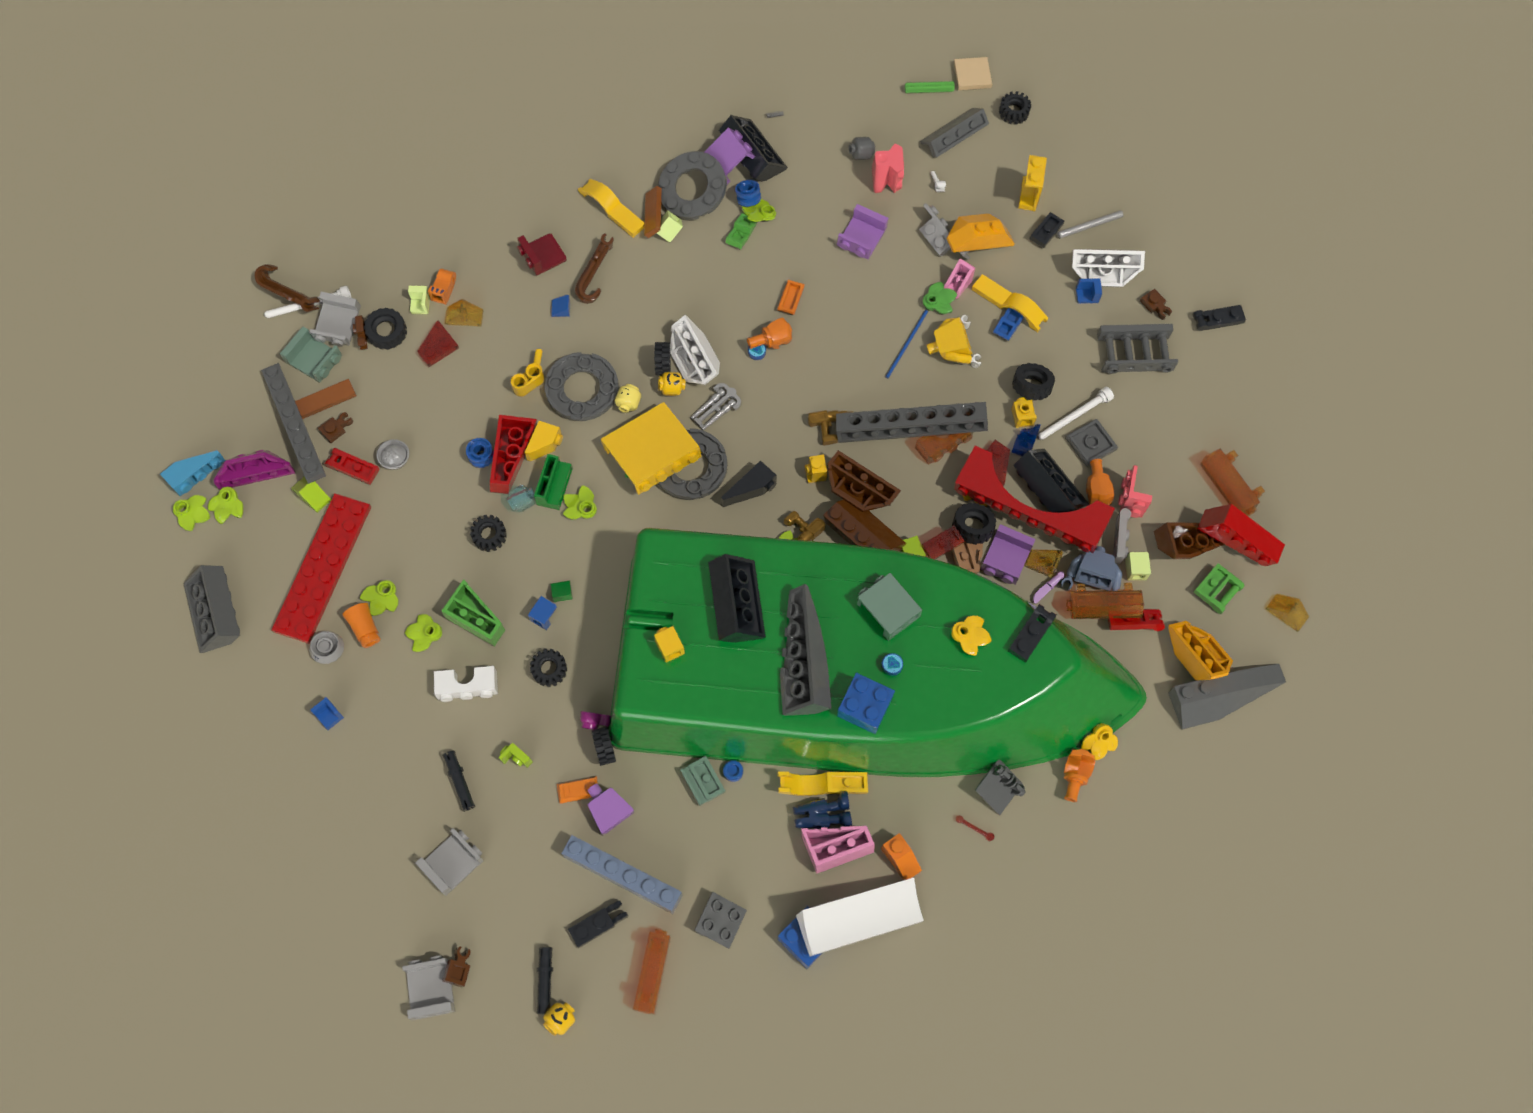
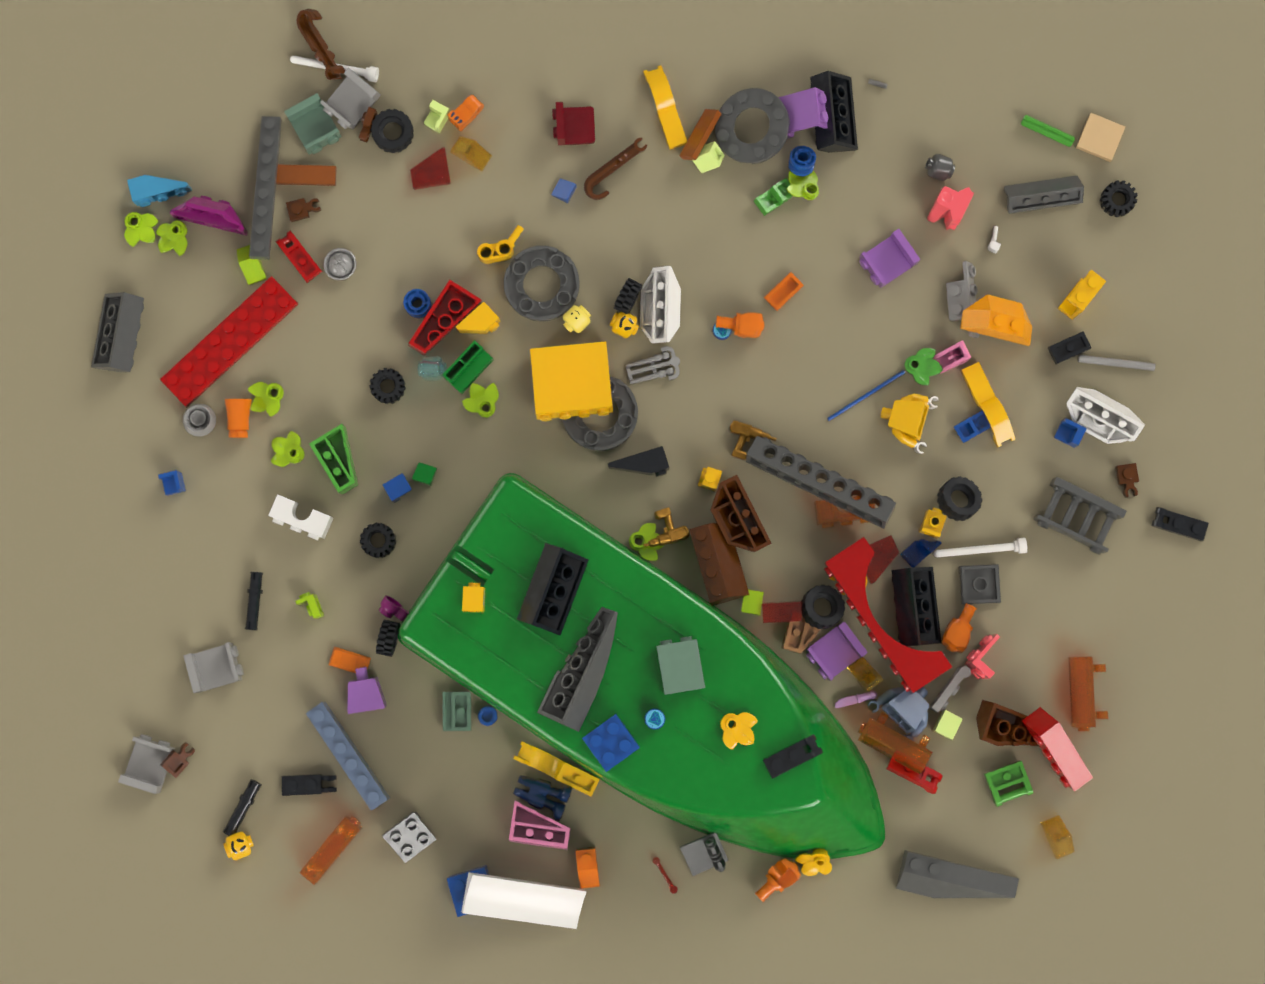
camera: 30 degrees right, 15 degrees up
(1199, 652) = (951, 834): light orange wedge -> none

